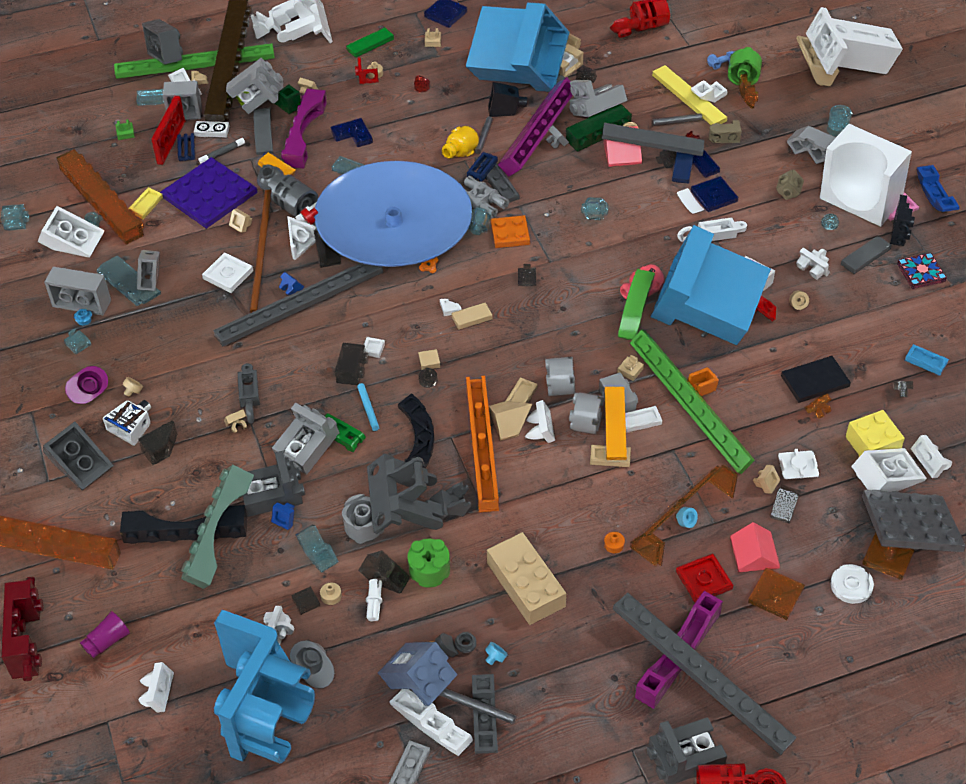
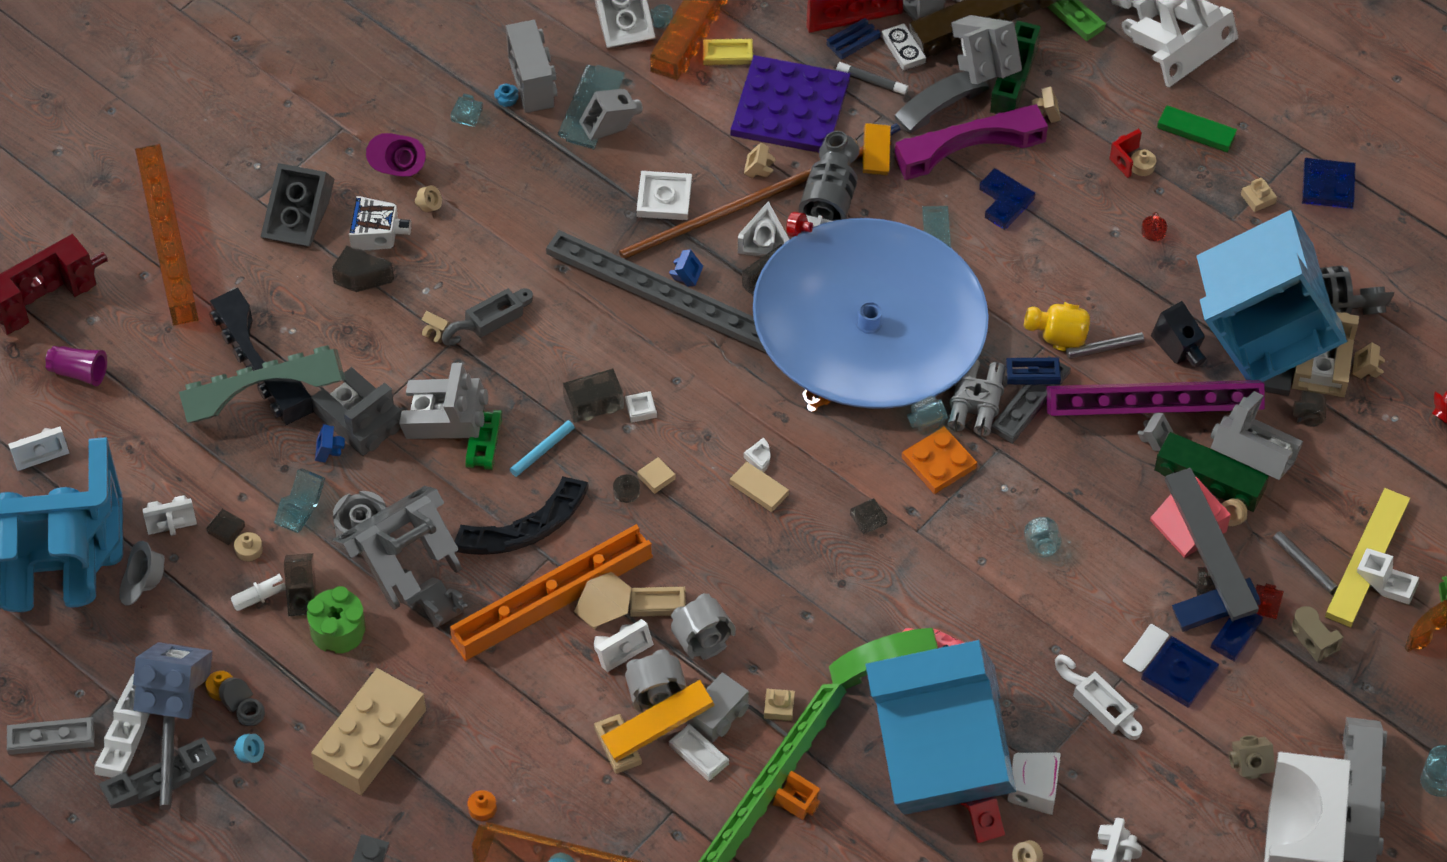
camera: 60 degrees right, 5 degrees up
(830, 222) = (1218, 833): clear light blue plate -> none

